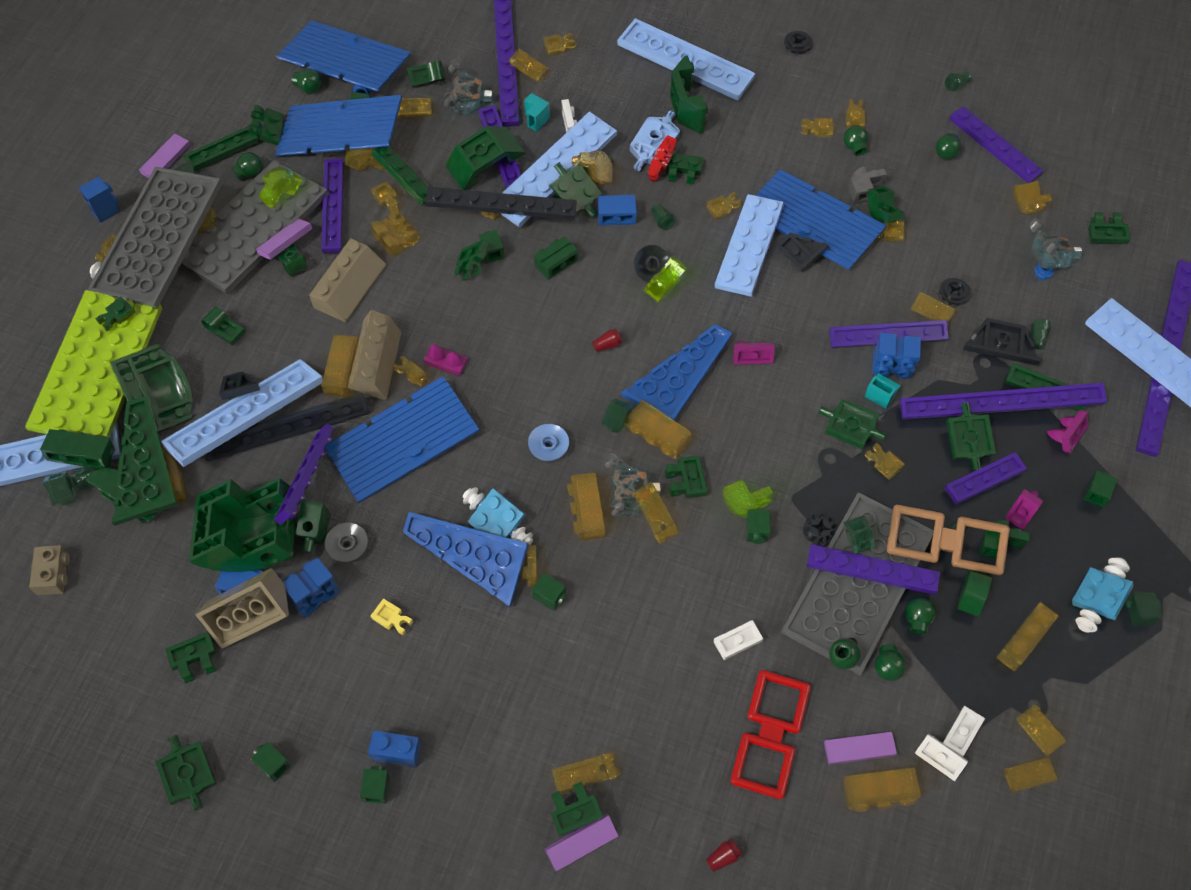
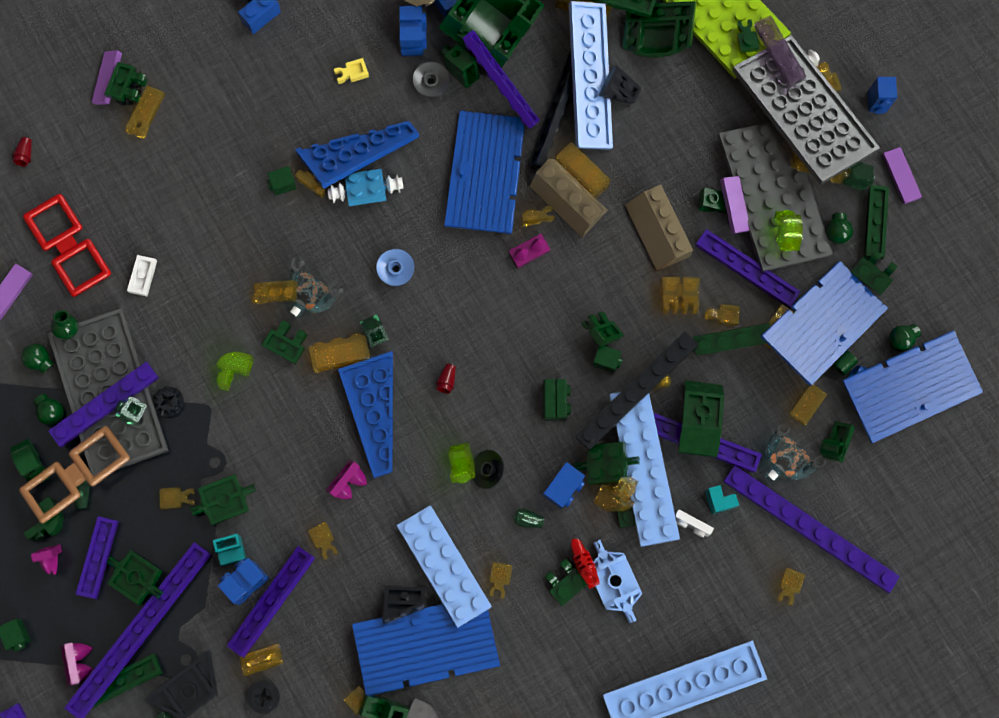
camera: 125 degrees right, 15 degrees up
(113, 279) = (779, 51): none -> plate
(220, 325) = (688, 113): dark green plate -> none
(528, 65) = (782, 537): clear yellow plate -> none
(586, 506) = (323, 254): clear yellow brick -> none
(688, 110) = (658, 657): dark green slope -> none
(757, 526) = (205, 357): dark green brick -> none
(809, 337) = (322, 537): none -> clear yellow plate

